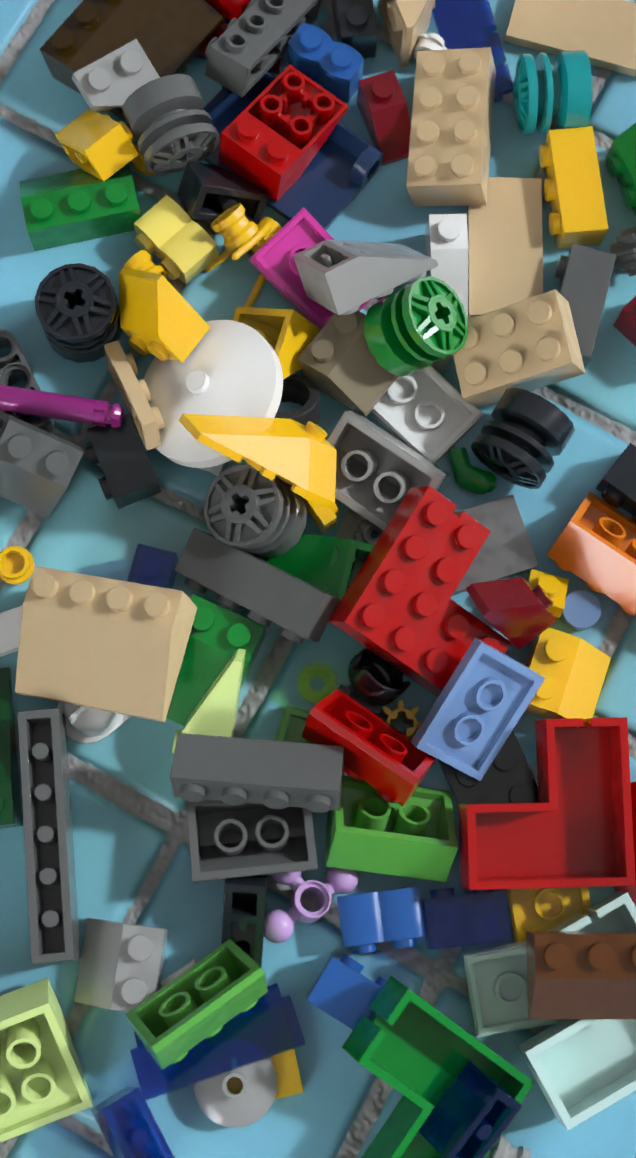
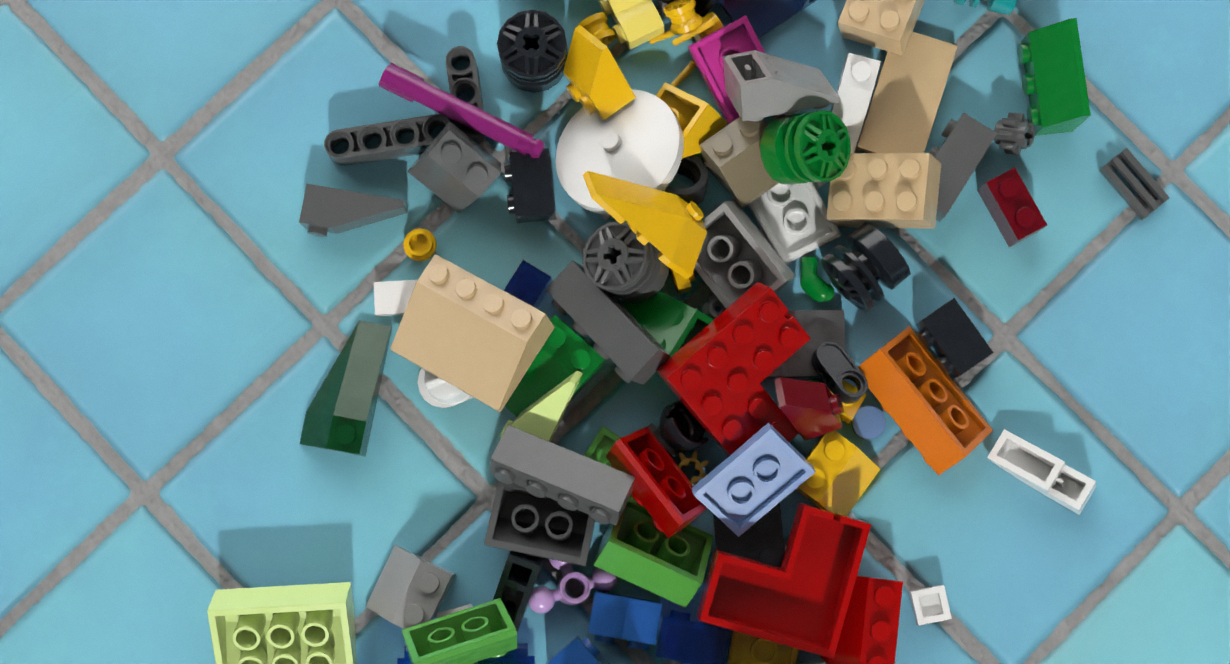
camera: 25 degrees right, 5 degrees up
(48, 836) = (383, 472): dark grey brick -> none
(134, 395) = (557, 134): tan plate -> none
(316, 670) = (639, 406): clear neon green plate -> none
(525, 556) = (835, 365): none -> black piece
(573, 187) = (982, 62): yellow brick -> none

